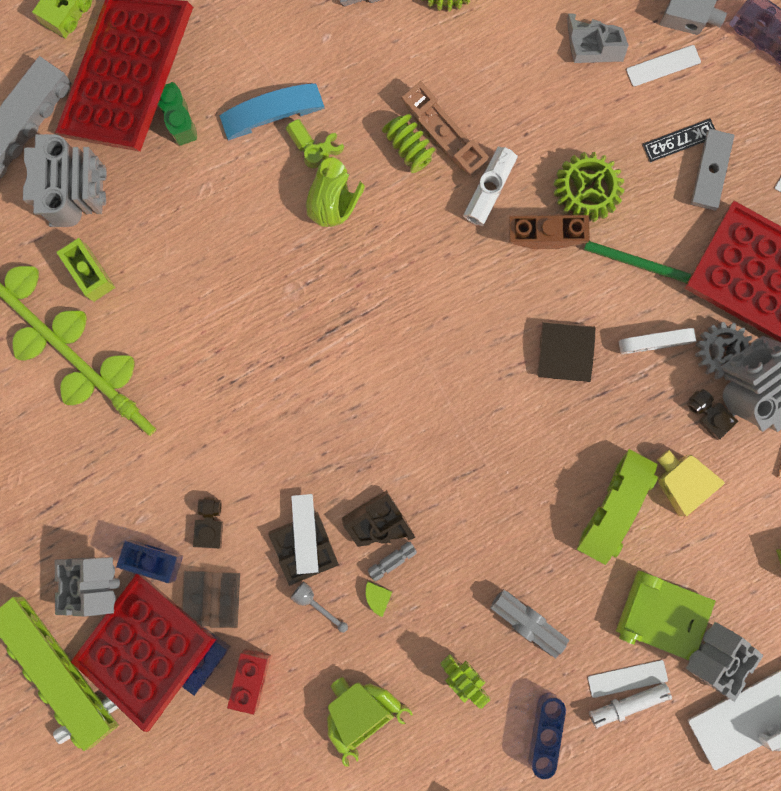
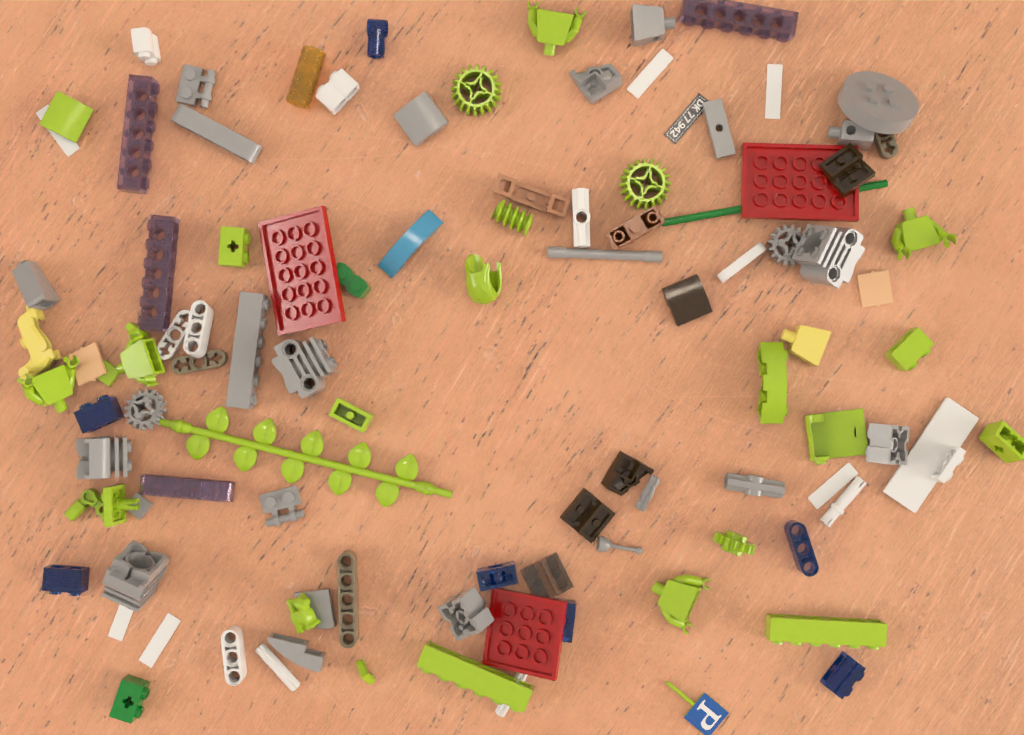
camera: 30 degrees left, 5 degrees up
(207, 531) = (521, 537): dark brown plate -> none
(249, 681) = (600, 615): red brick -> none
(304, 534) = (584, 506): white sticker -> none
(312, 153) = (454, 258): lime bar -> none
(377, 598) = (651, 520): lime tile -> none
(448, 217) = (646, 256): none -> light grey piece
(716, 419) = (804, 291): dark brown plate -> none

